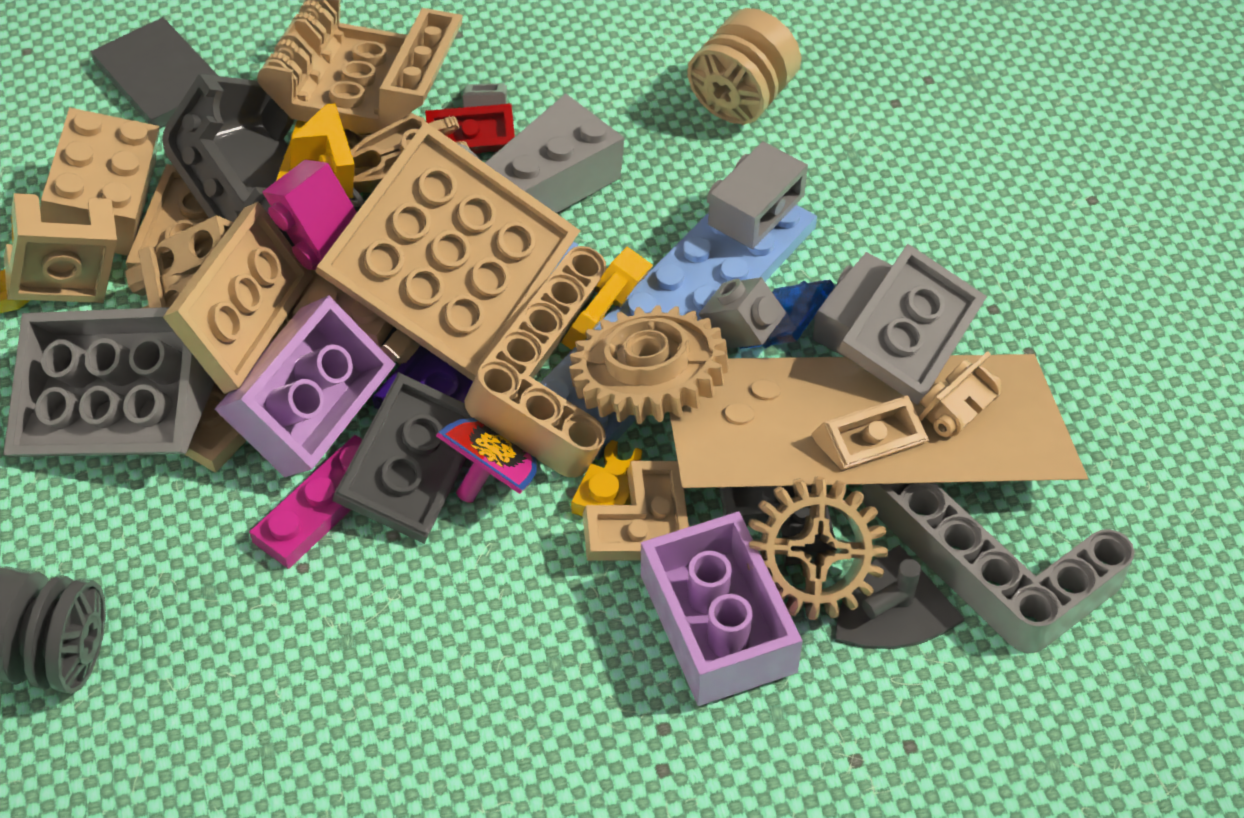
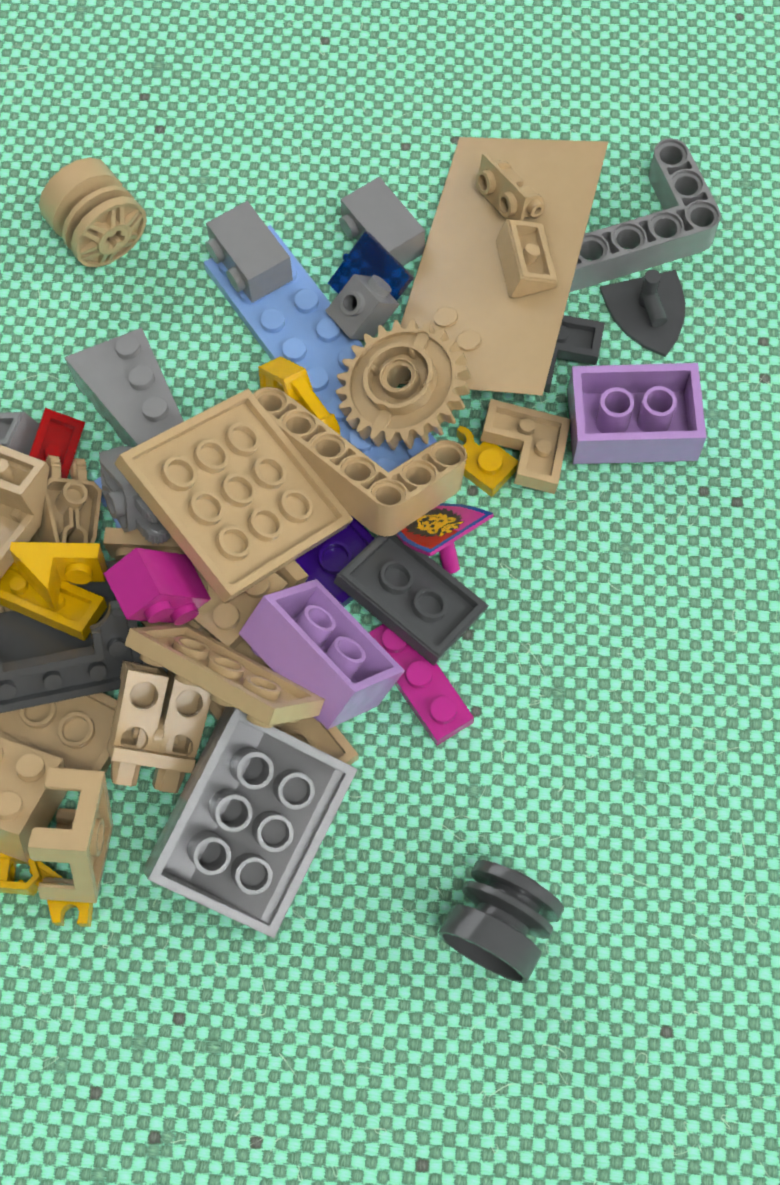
camera: 70 degrees left, 15 degrees up
(816, 523) = (611, 324): tan gear -> none
(912, 324) = (431, 193): light grey plate -> none

